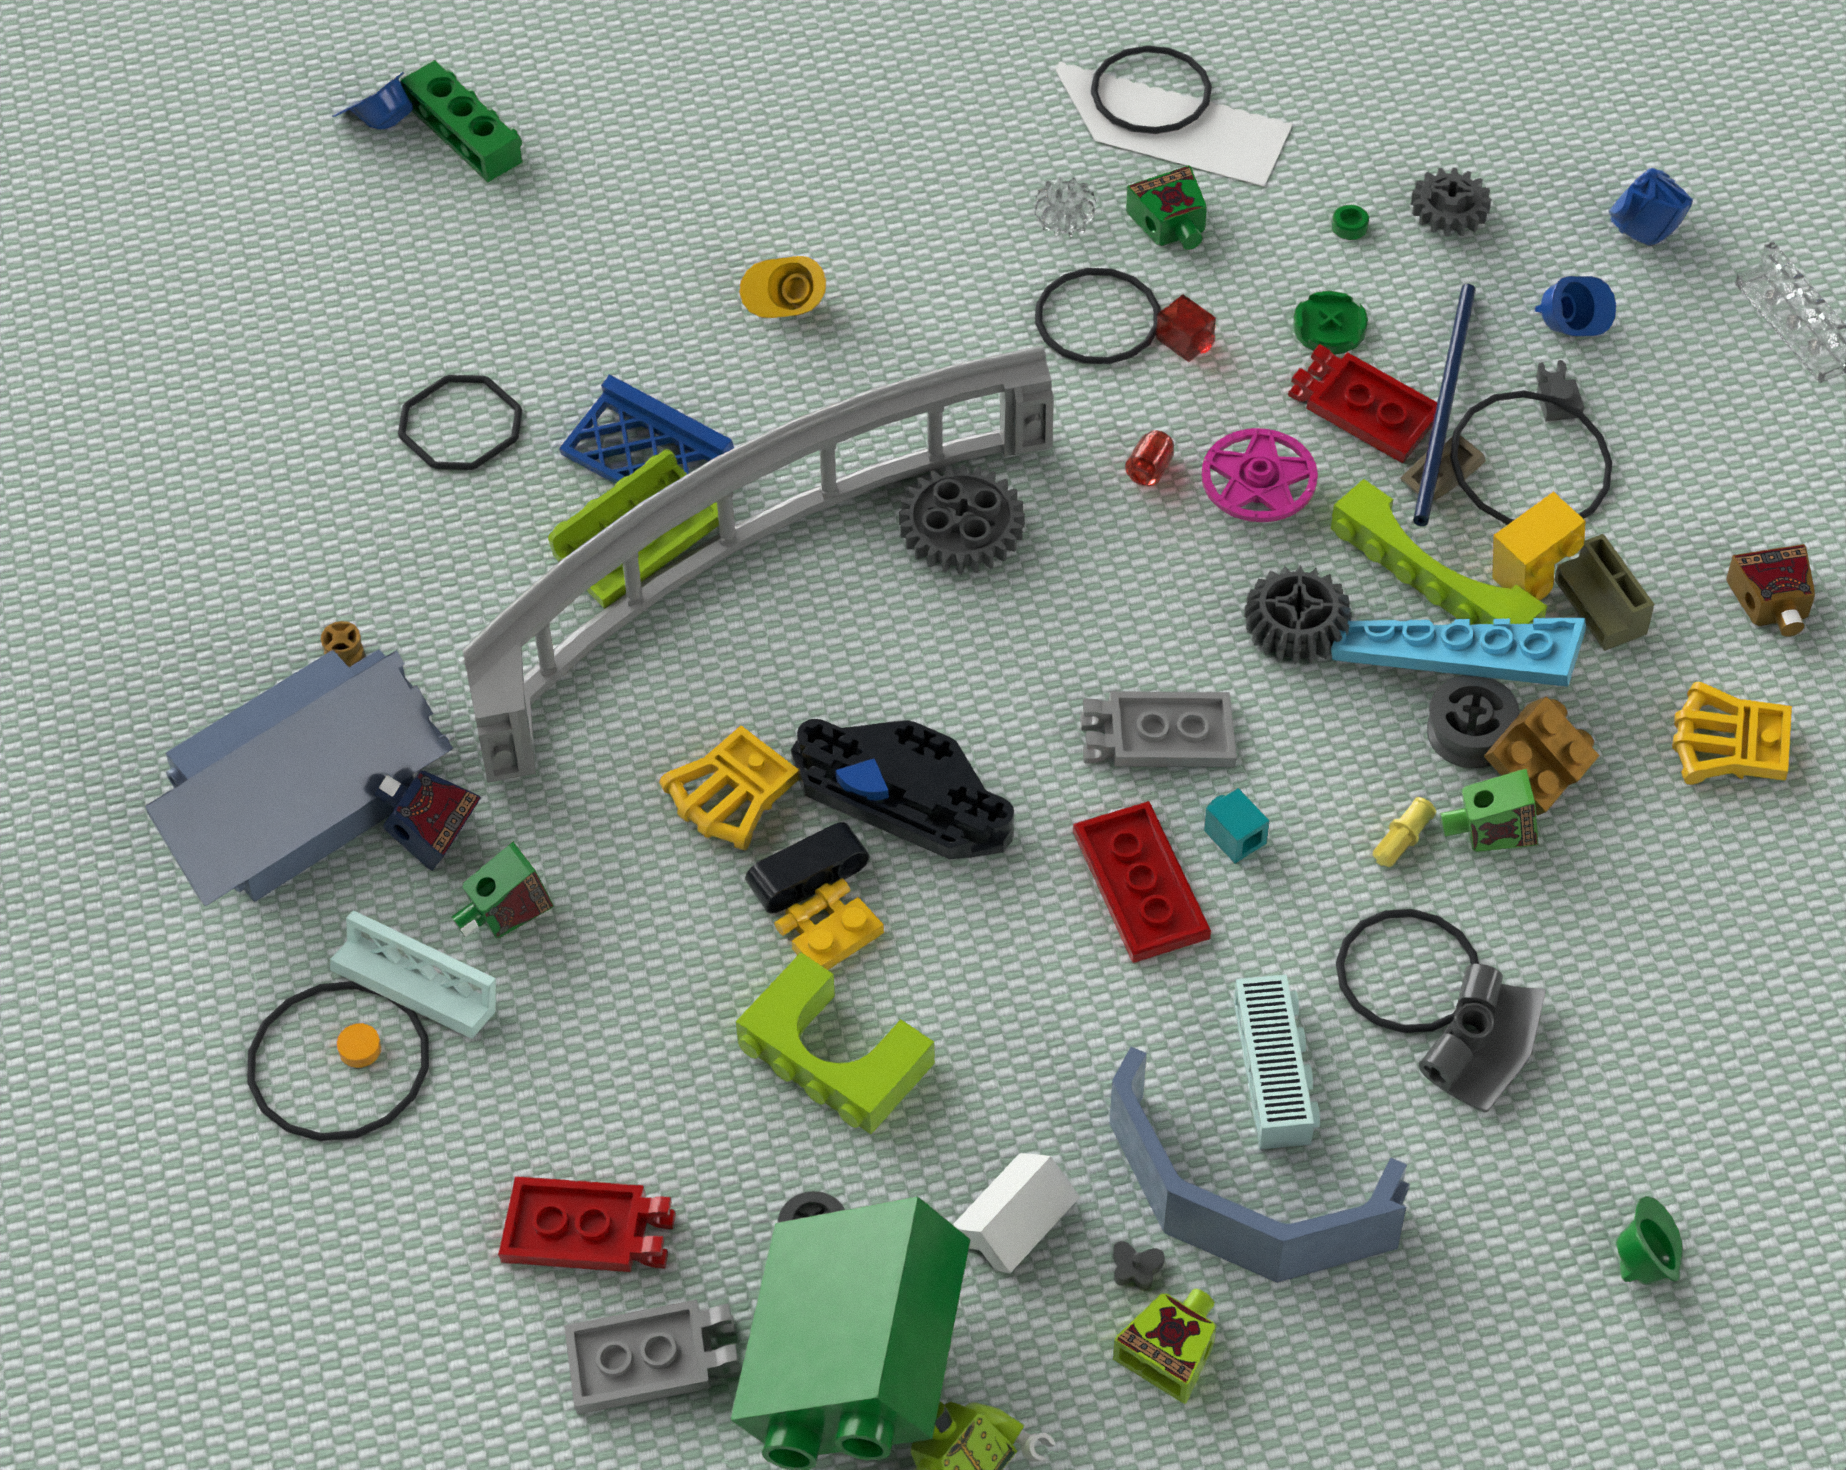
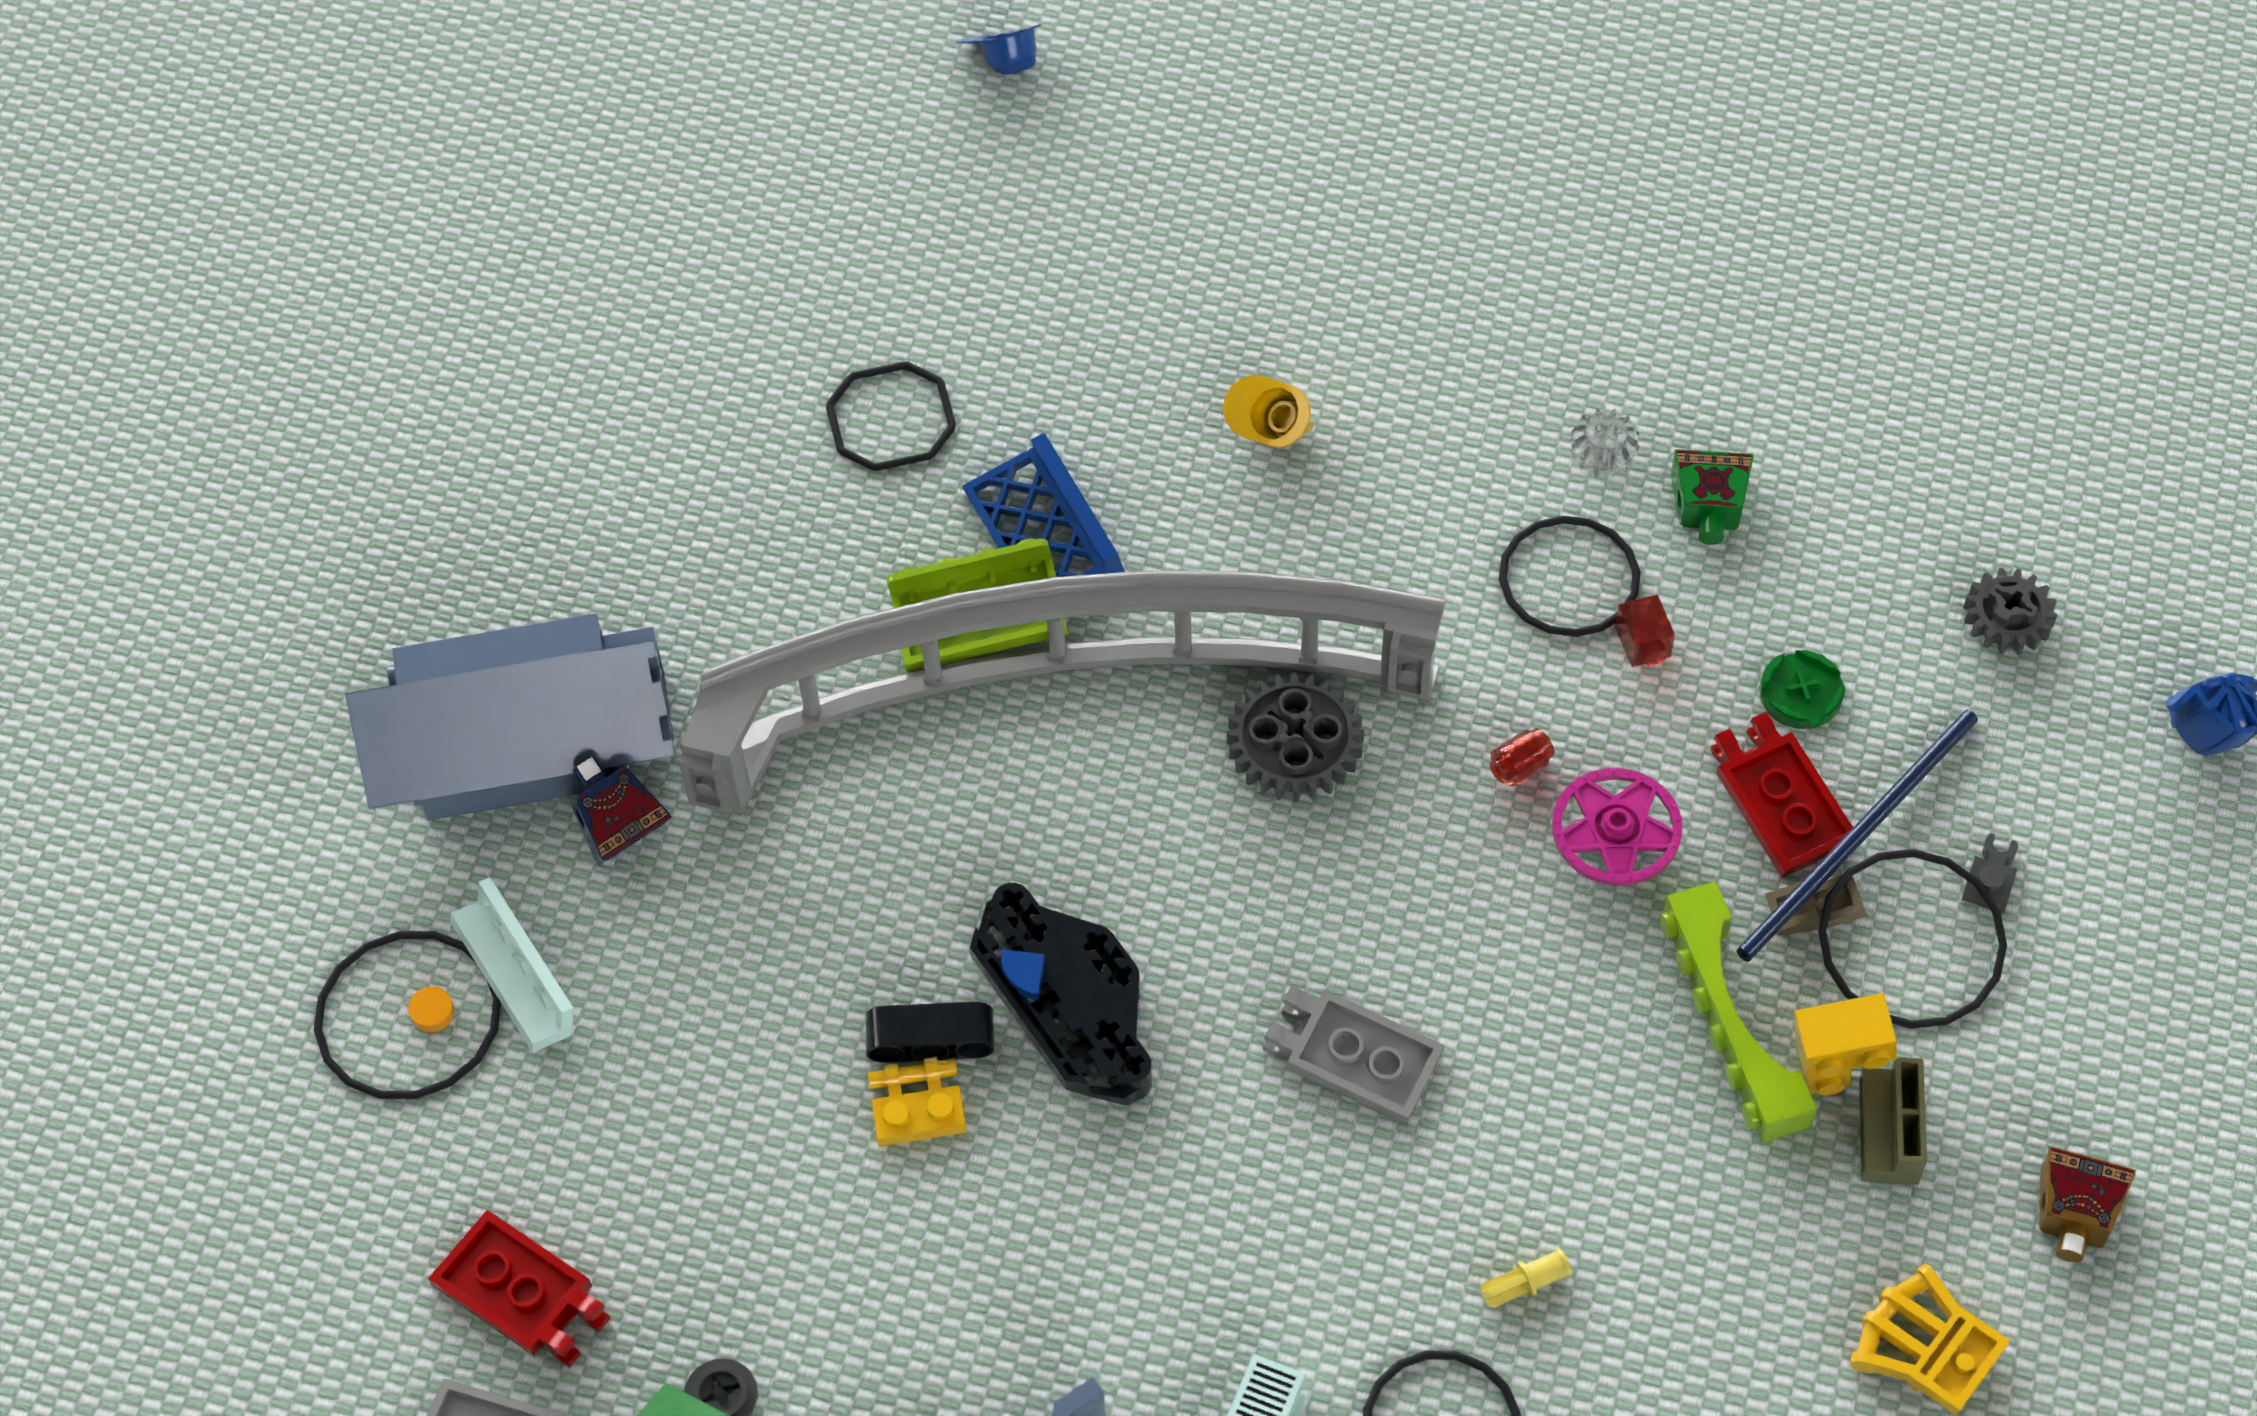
camera: 30 degrees right, 5 degrees up
(345, 637) = (651, 592): pearl gold wheel -> none
(463, 121) = (1074, 98): green brick -> none
(502, 895) = (635, 925): green torso -> none
(745, 765) = (939, 910): yellow plate -> none
(859, 1089) = (844, 1284): lime arch -> none
(1141, 882) = (1238, 1202): red tile -> none
(1148, 129) = (1767, 398): black piece -> none
(1218, 142) = (1781, 399): white sticker -> none
(1236, 825) = (1362, 1189): teal brick -> none
(1273, 614) = (1539, 974): dark grey gear -> none
(1350, 222) = (1893, 586): green tile -> none
(1451, 714) = (1681, 1217): dark grey wheel -> none
(1496, 813) = (1623, 1307): bright green torso -> none
(1500, 650) = (1733, 1135): medium azure wing -> none
(1546, 747) = (1711, 1266): pearl gold plate -> none
(1578, 306) = (2071, 791): blue piece -> none

